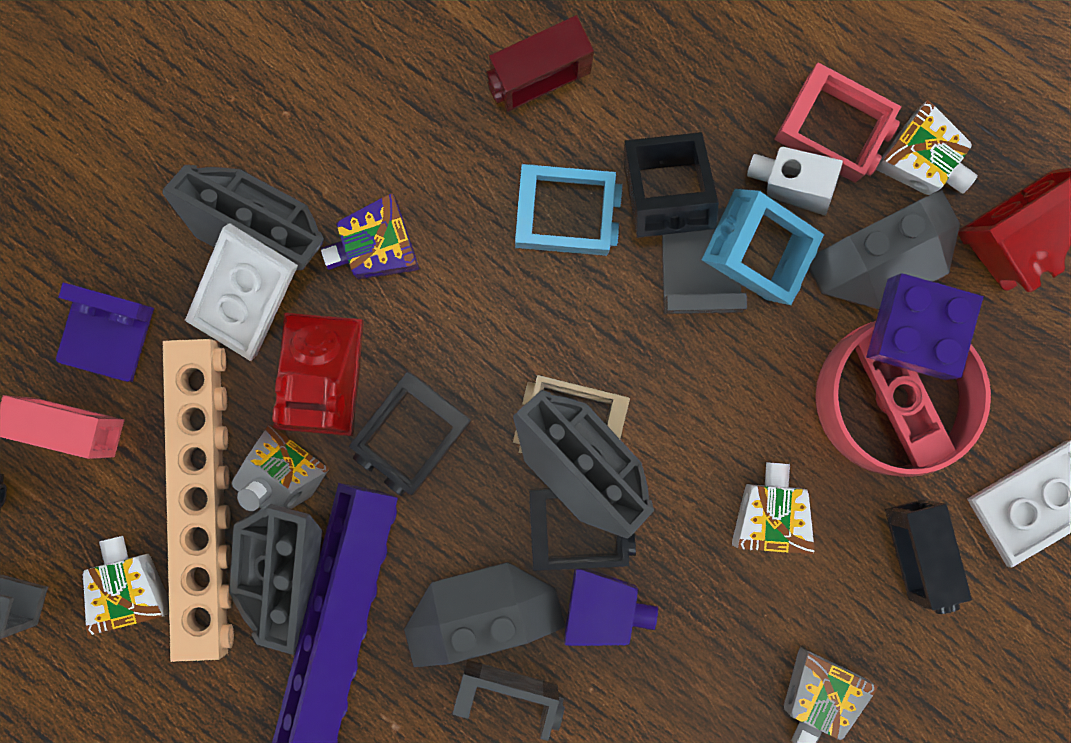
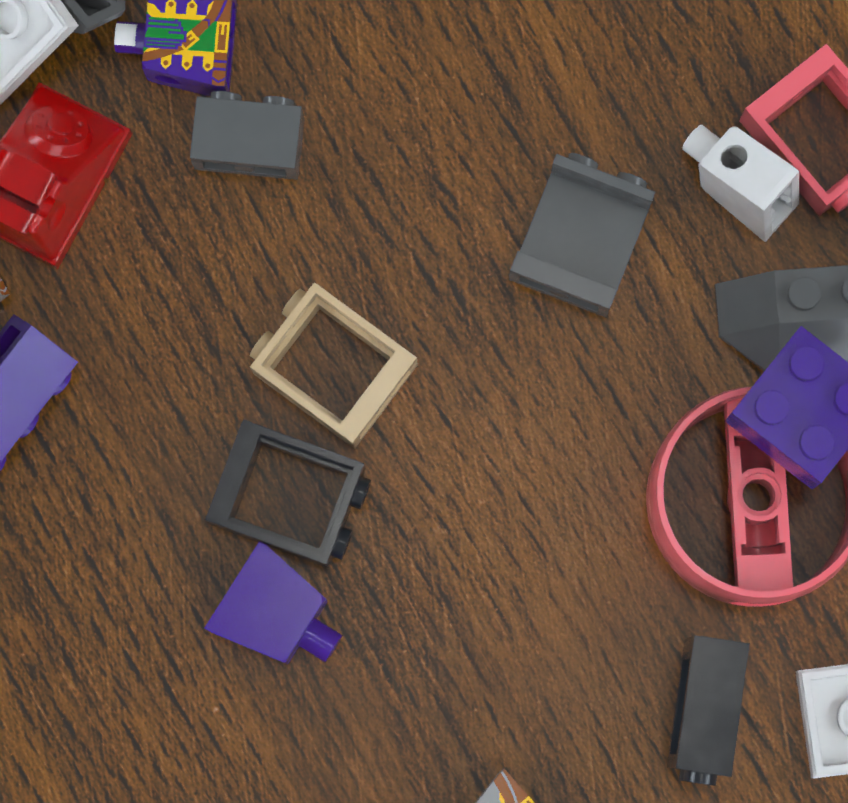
camera: 30 degrees right, 5 degrees down
(370, 459) = (101, 256): black window -> none
(445, 290) = (247, 135): none -> dark grey brick
(481, 615) = (119, 551): dark grey wedge -> none
(514, 685) = (67, 625): dark grey panel -> none
(584, 463) = (321, 404): dark grey wedge -> none
(611, 198) = (391, 75): medium azure window -> none
(654, 214) = (593, 156): black window -> none
(729, 247) = (629, 208): medium azure window -> none
(775, 515) = (538, 583): torso -> none

